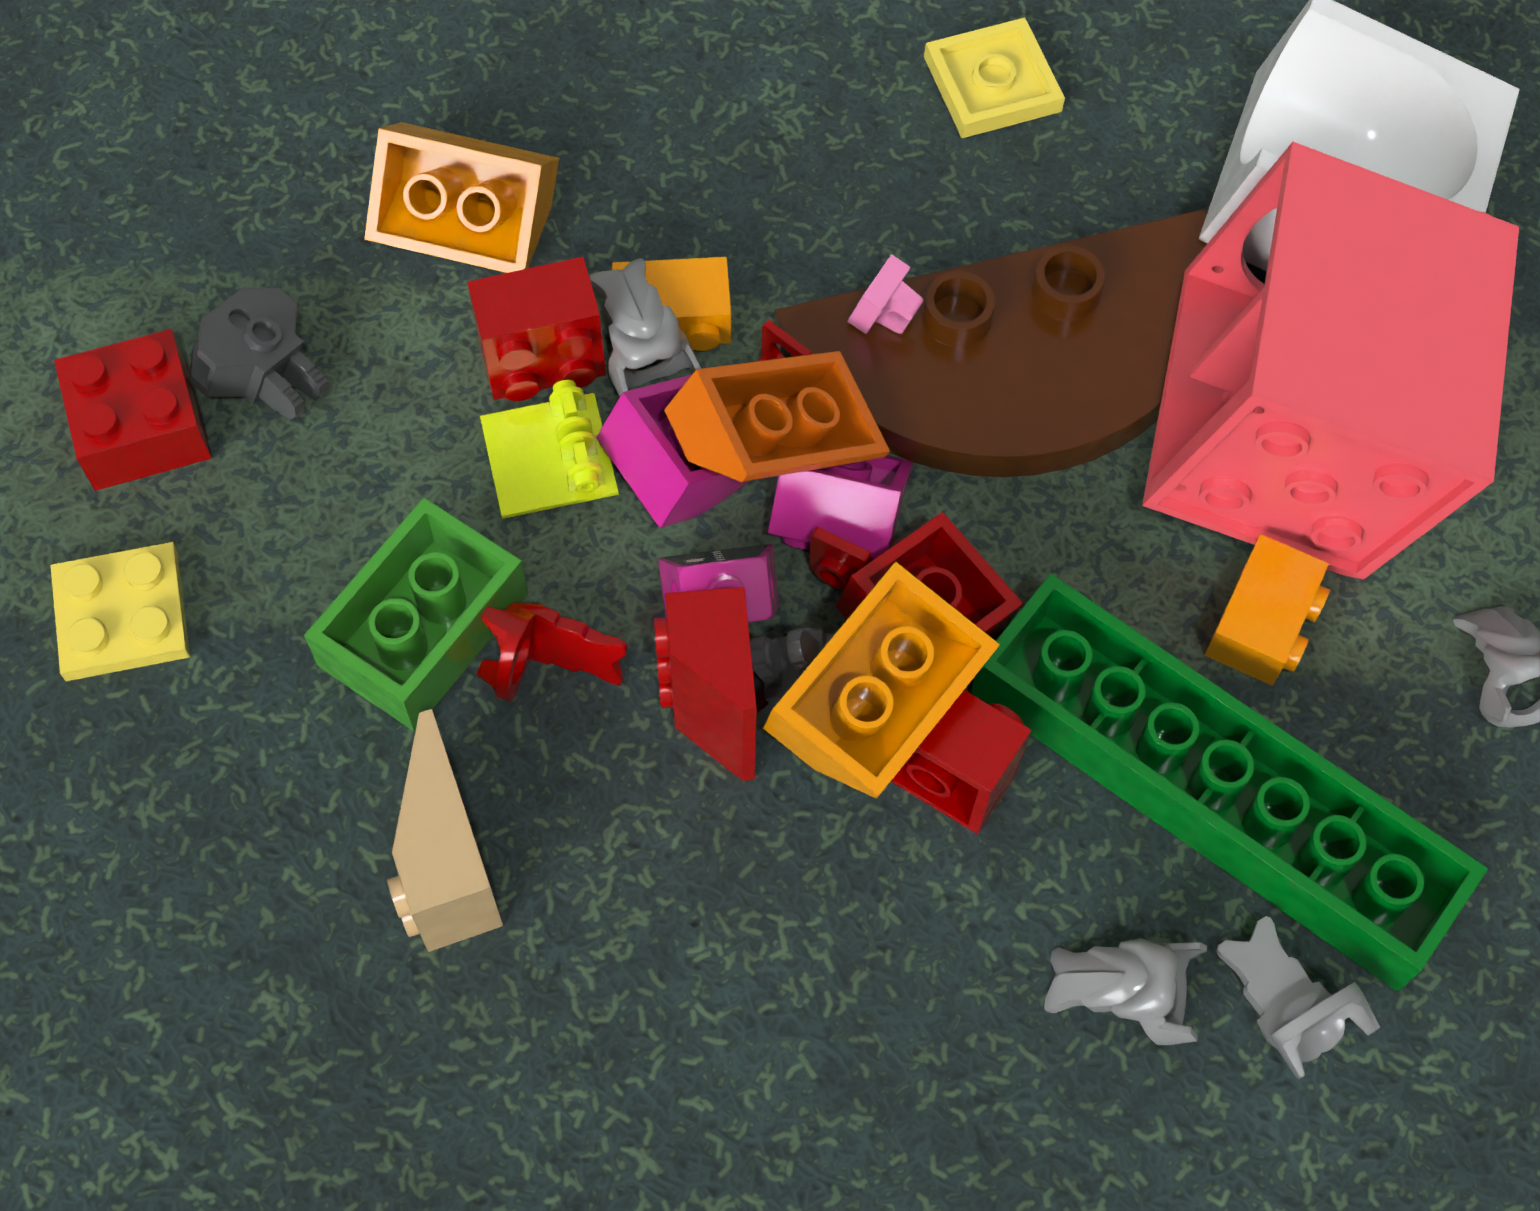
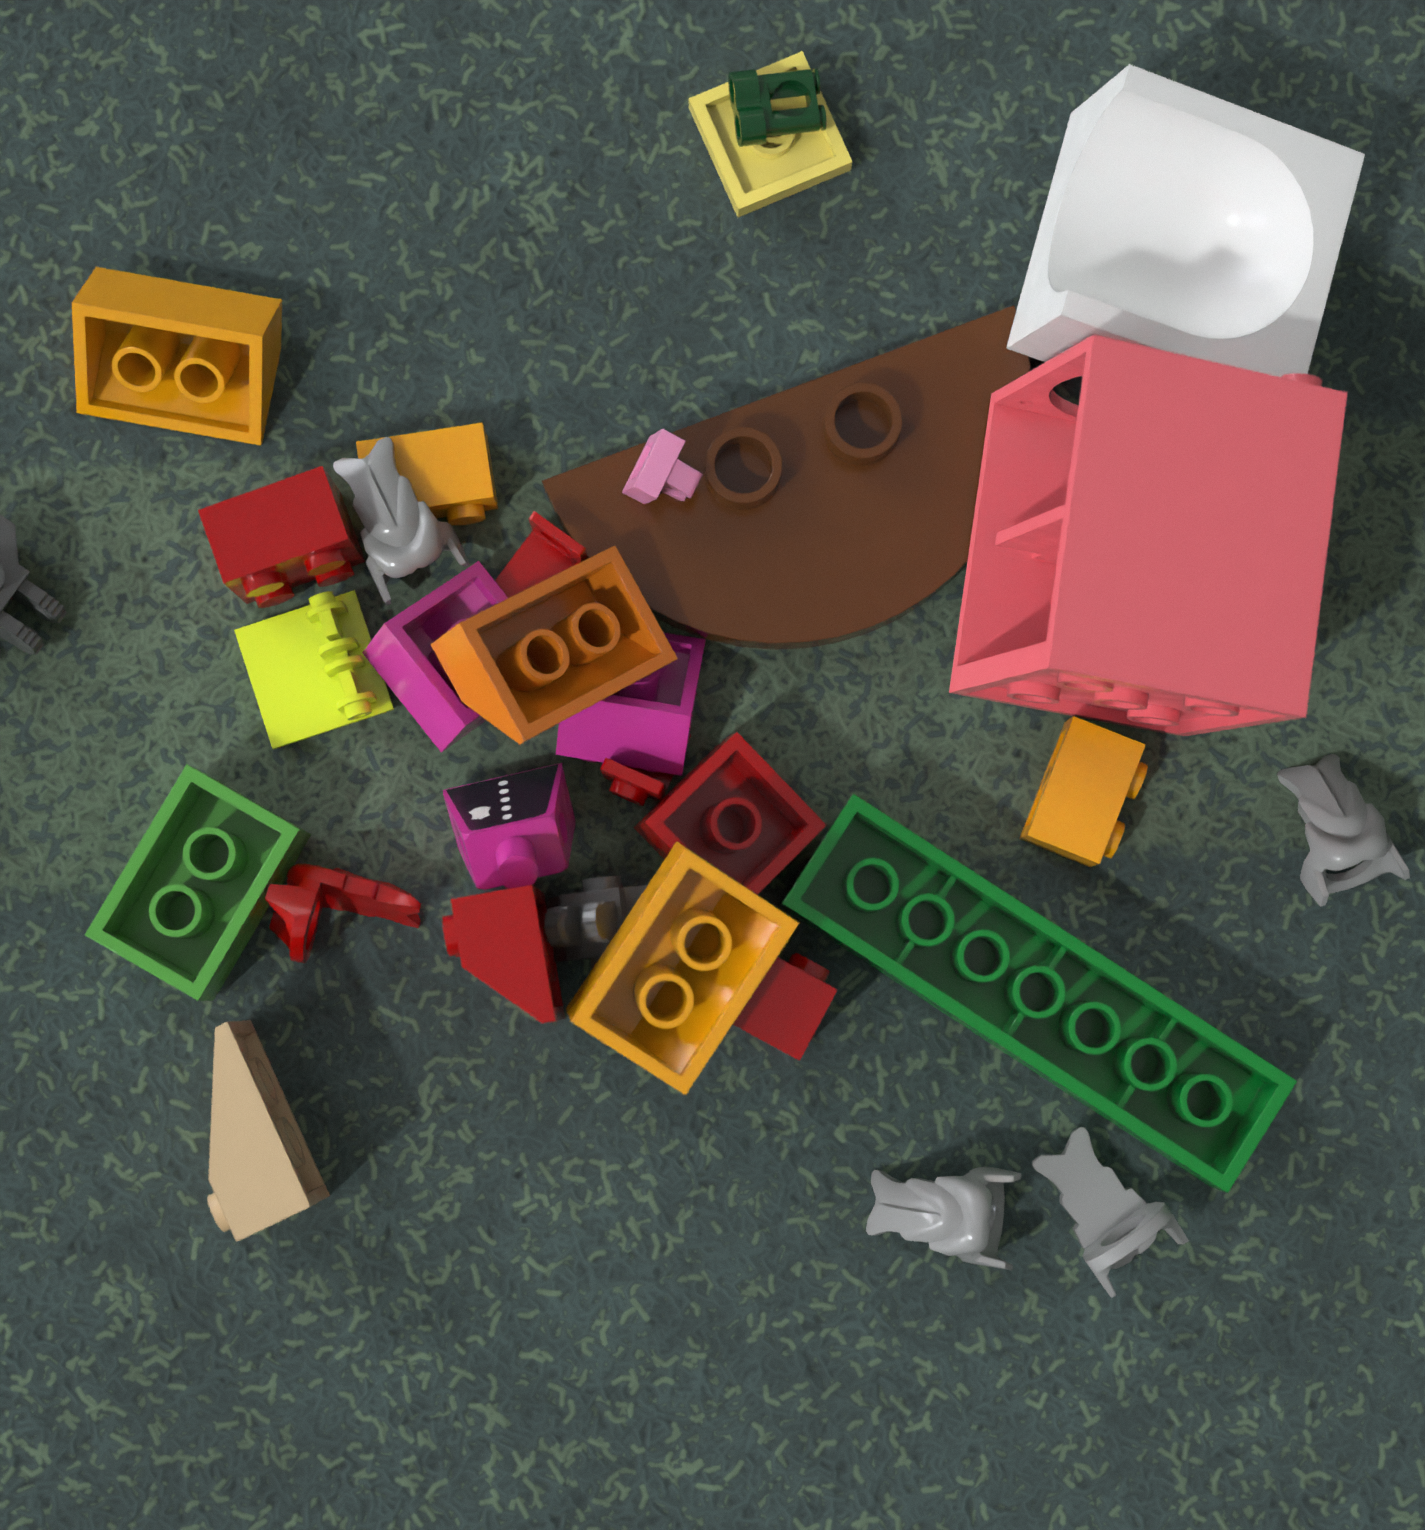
camera: 10 degrees left, 20 degrees up
(981, 49) = (752, 108): none -> dark green piece

